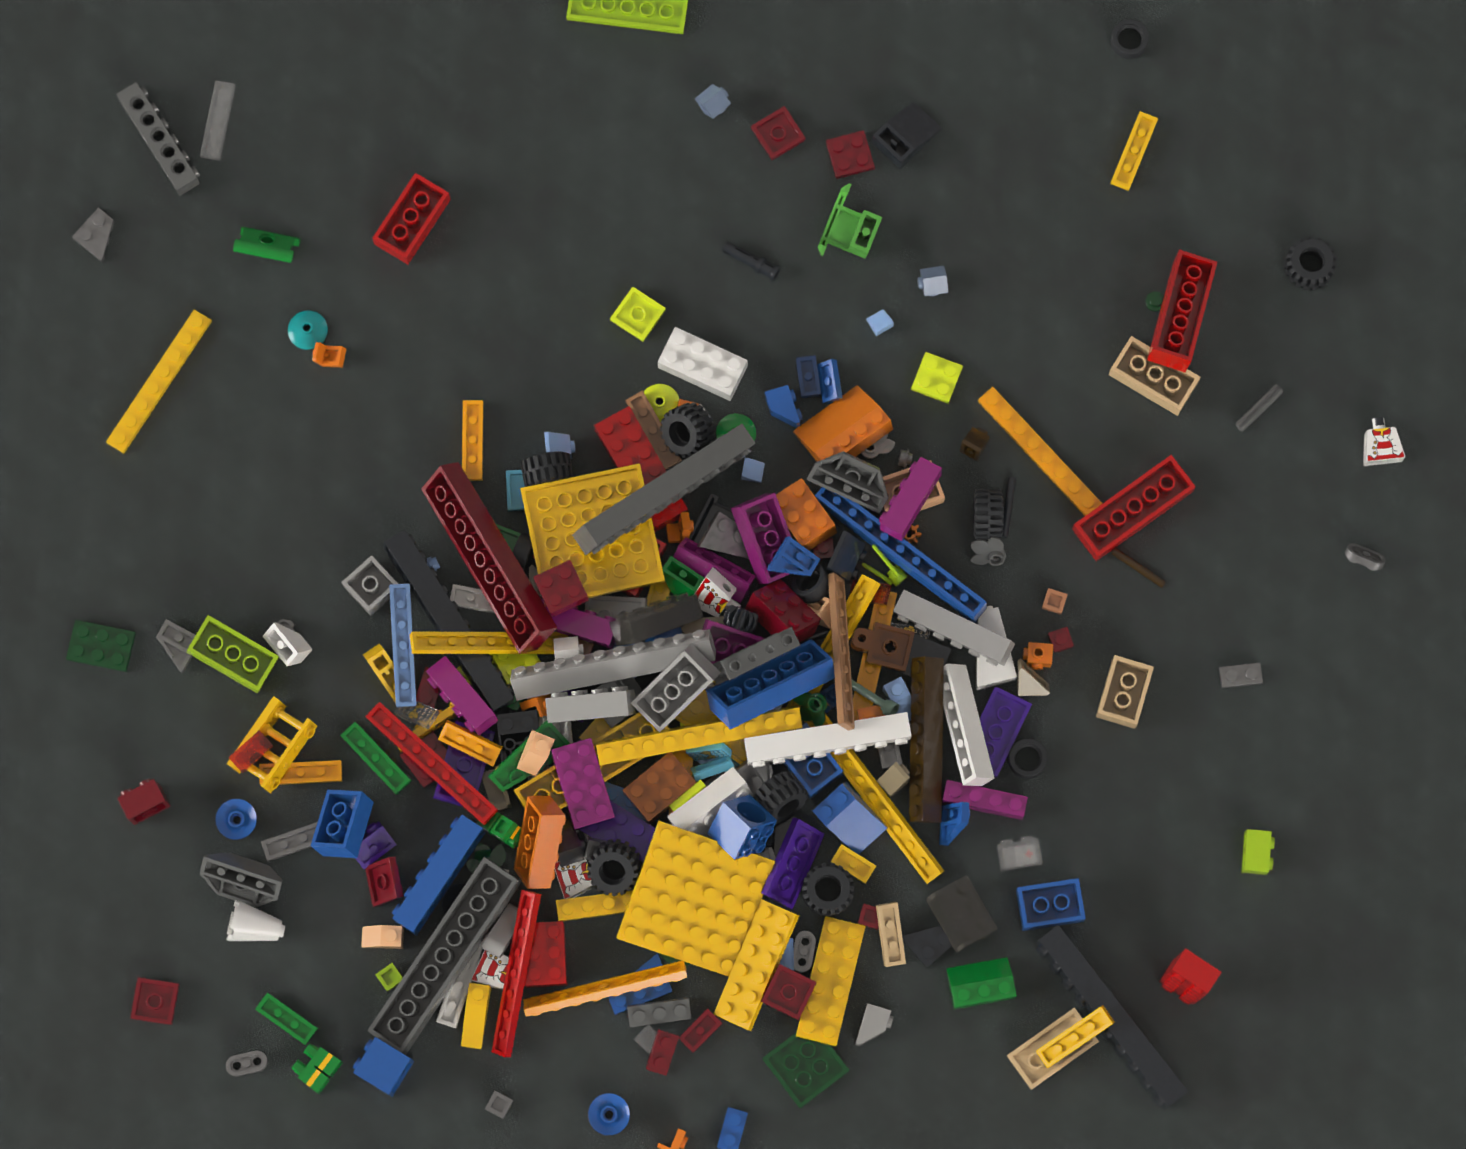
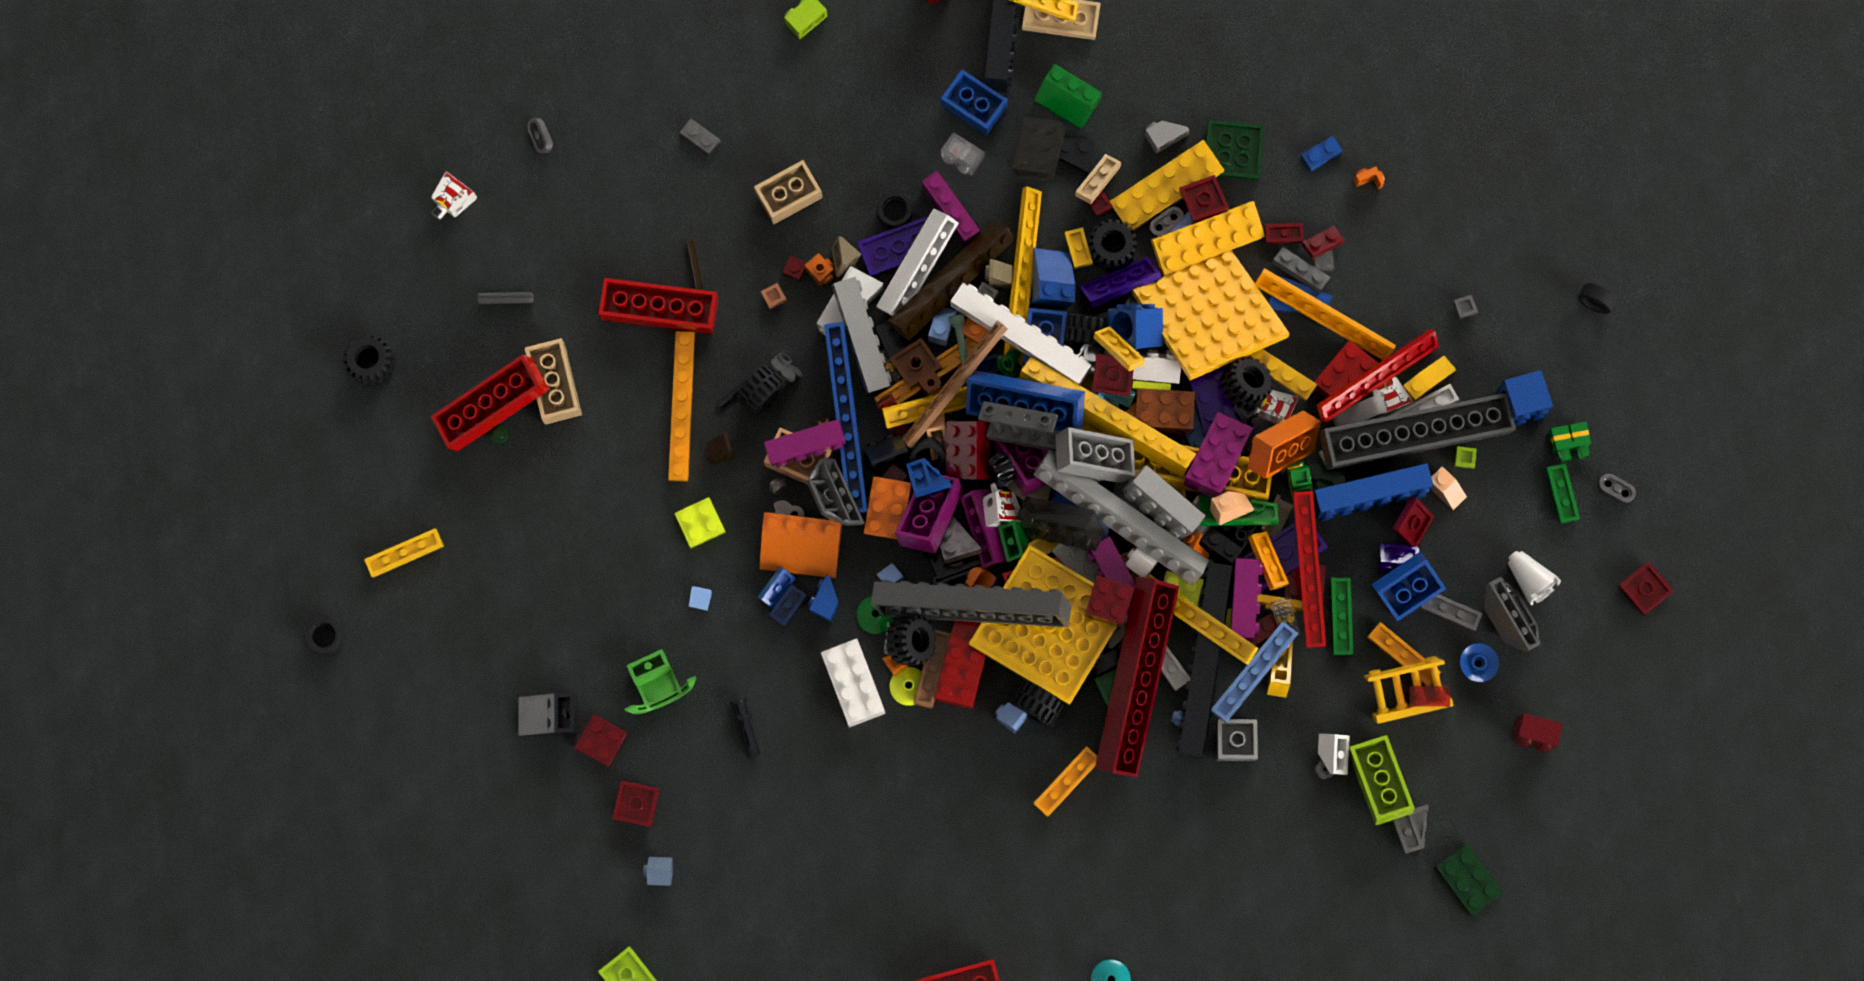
camera: 135 degrees left, 0 degrees up
(329, 355) = (1113, 942): orange bracket -> none
(514, 482) = (1069, 717): medium azure tile -> none
(605, 1103) = (1399, 226): blue dish -> none
(637, 314) = (863, 763): neon yellow plate -> none
(724, 772) = (1111, 376): none -> dark red plate
(736, 790) = (1119, 348): none -> yellow plate
(896, 574) = (862, 413): lime plant -> none
(933, 281) = (635, 590): brick -> none
(953, 821) = (985, 211): blue wing -> none

